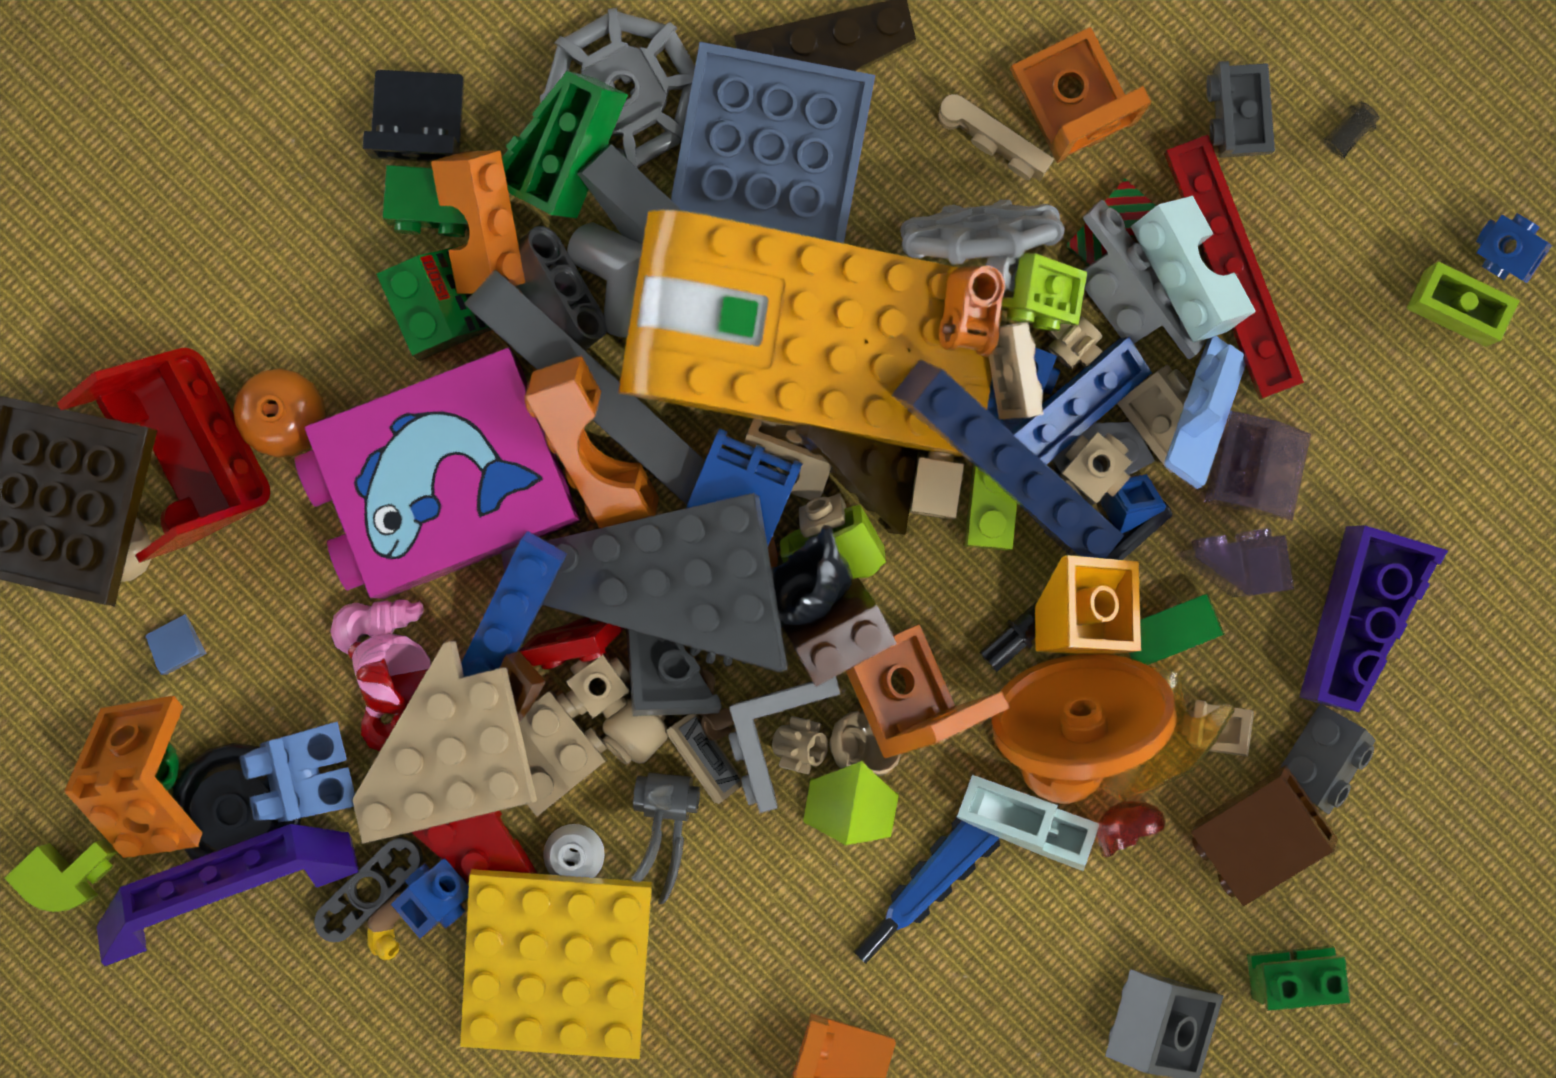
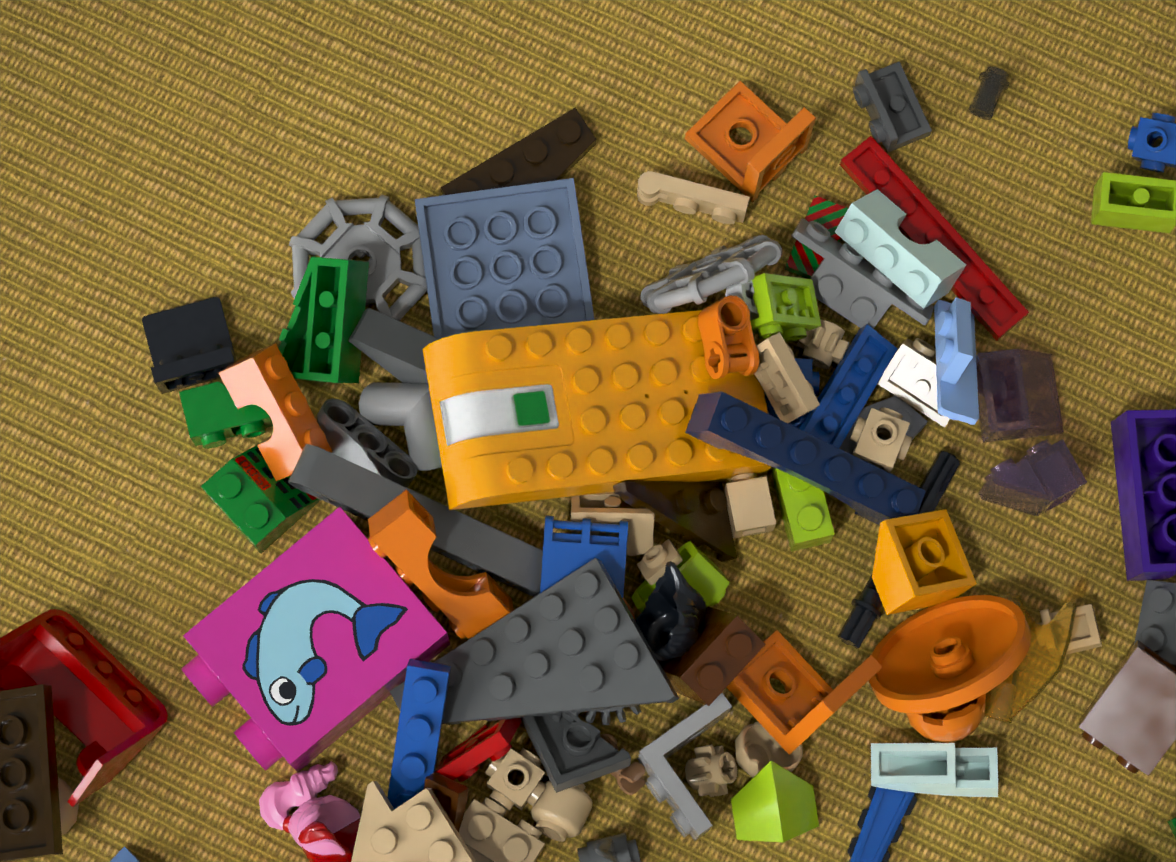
camera: 20 degrees left, 10 degrees down
(296, 407) = (167, 647): orange cylinder -> none
(705, 758) = (630, 813): slope -> none
(1126, 823) = (1018, 741): clear red hair -> none
(1133, 503) = (922, 463): blue slope -> none
(1177, 630) = (1001, 557): green slope -> none

